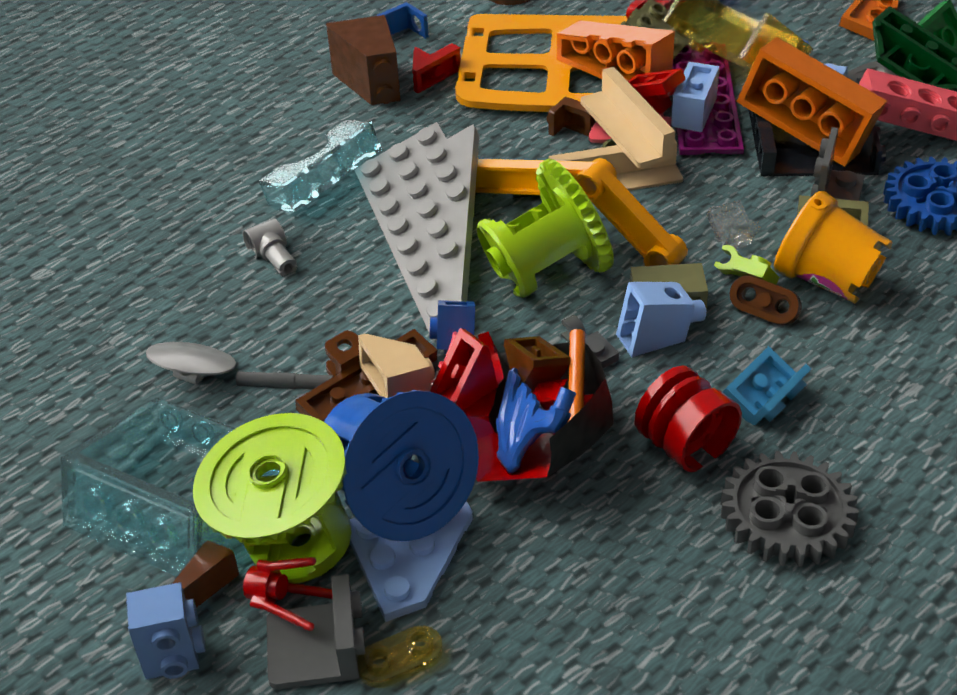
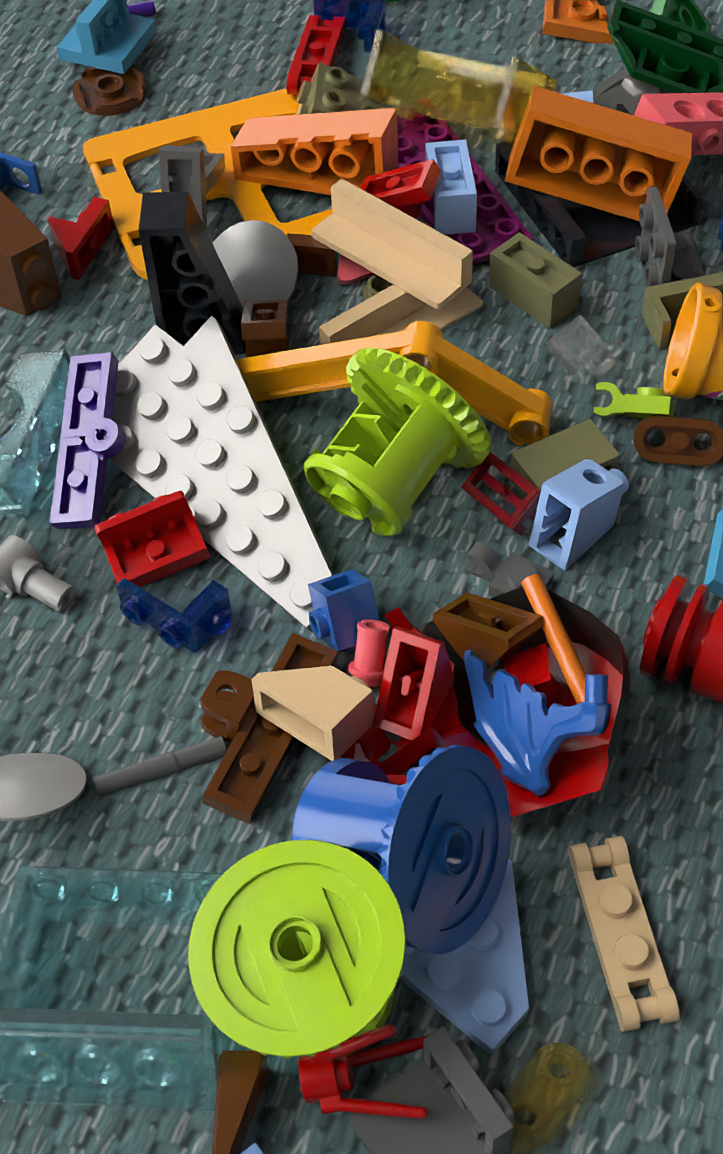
camera: 25 degrees left, 10 degrees up
(354, 179) = (86, 441): none -> hinge
(355, 305) = (203, 617): none -> clear blue bracket
(359, 248) = (152, 540): none -> red bracket
(470, 92) = (185, 270): none -> black wedge
(512, 47) = (191, 171): none -> dark grey bracket
(516, 146) = (265, 327): none -> reddish brown slope
(520, 583) = (622, 934): none -> tan plate
(528, 113) = (258, 261): none -> dark grey shield
(606, 308) = (524, 507): none -> dark red tile
(724, 171) = (535, 280): none -> olive panel

